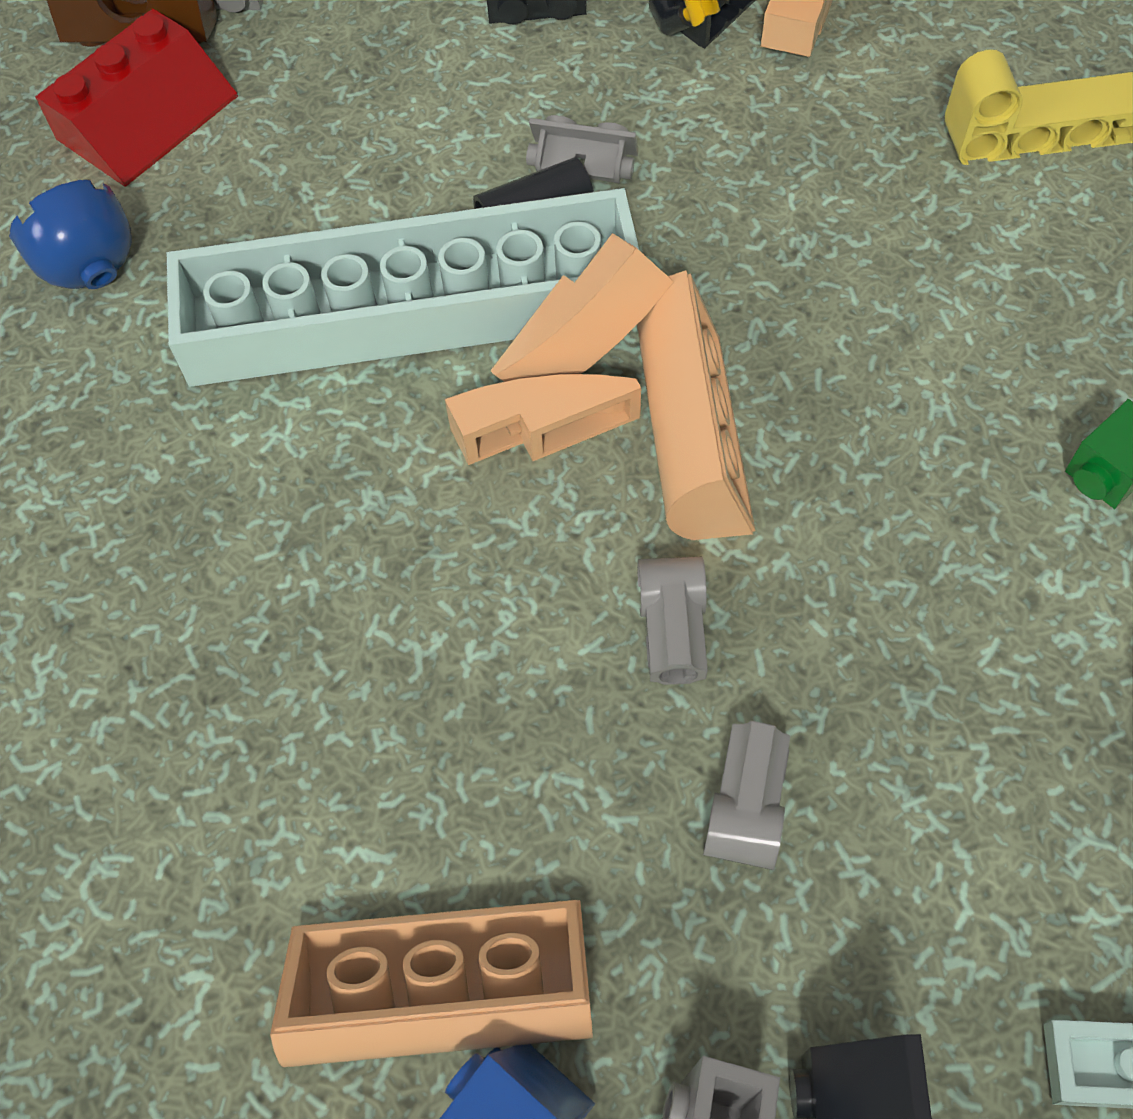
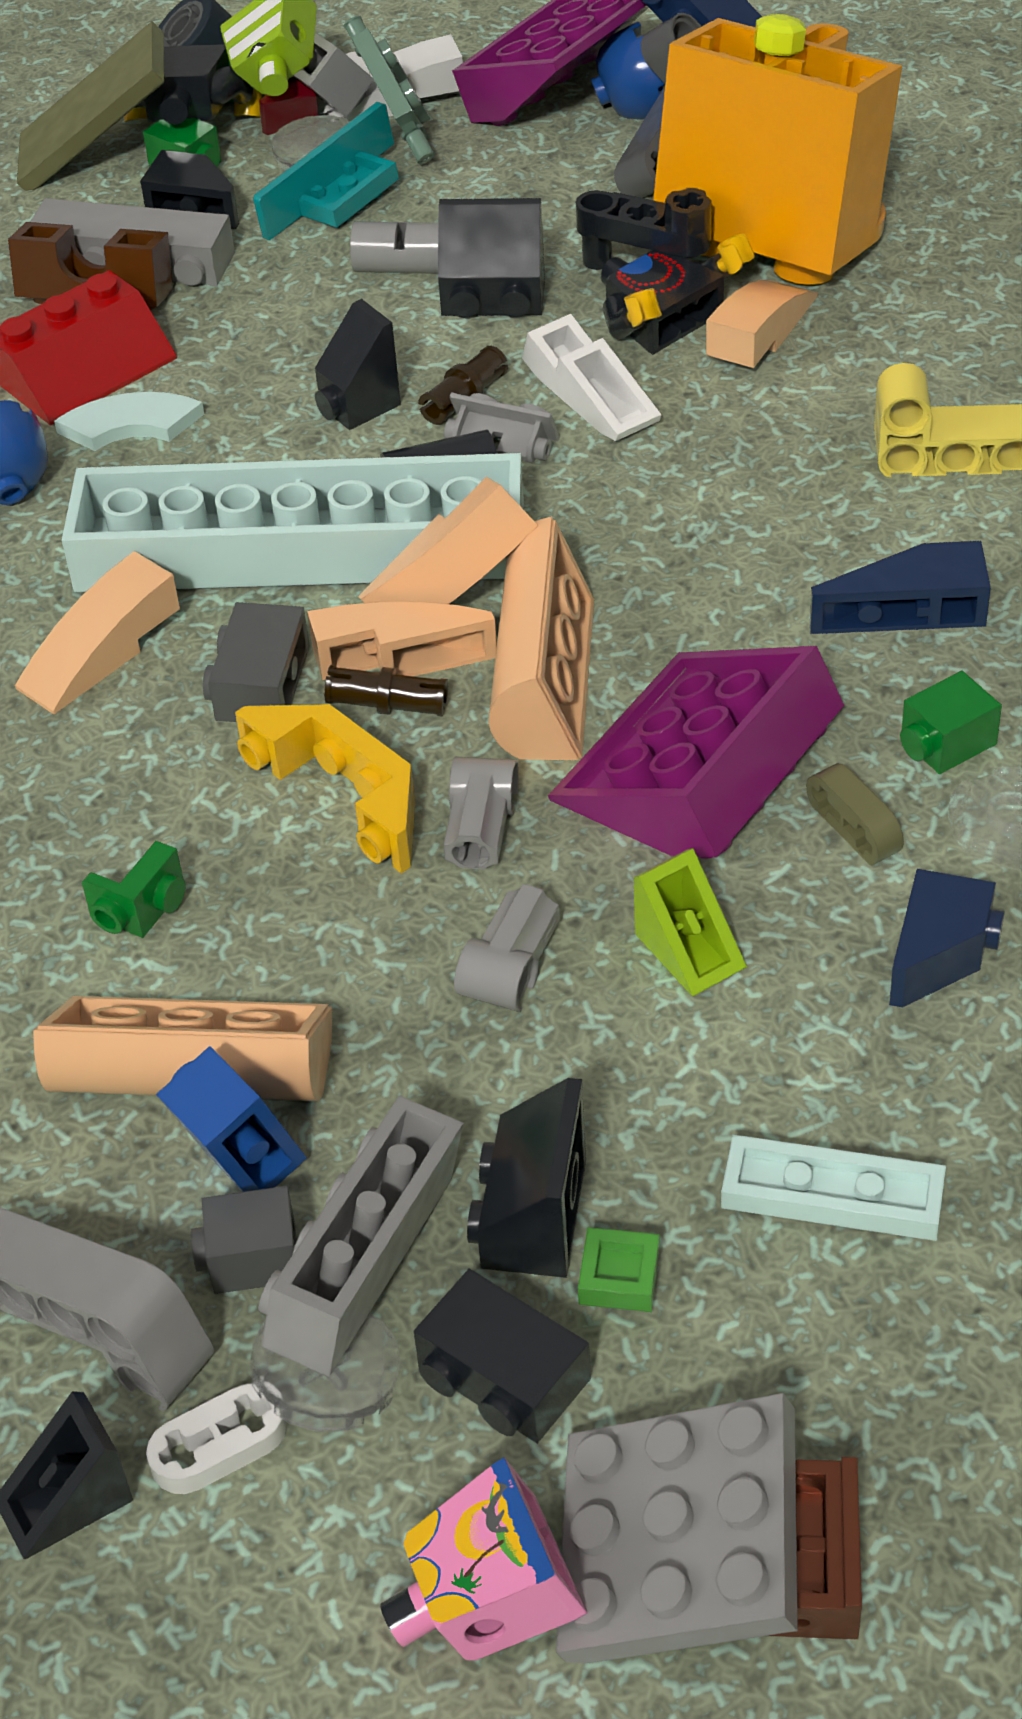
camera: 10 degrees right, 15 degrees down
(203, 170) = (128, 416): none -> light aqua tile
(227, 442) = (99, 632): none -> light nougat slope
(352, 766) = (141, 897): none -> green bracket
(401, 461) = (257, 658): none -> dark grey brick
(430, 97) = (358, 369): none -> black slope
(457, 547) = (384, 780): none -> yellow slope
(532, 100) = (463, 380): none -> dark brown pin
(541, 477) = (386, 690): none -> dark brown pin
(656, 85) = (588, 378): none -> white slope
(880, 513) = (704, 747): none -> magenta slope
(930, 747) = (684, 923): none -> lime slope
(1046, 297) = (907, 591): none -> dark blue slope
(1057, 576) = (855, 813): none -> olive beam

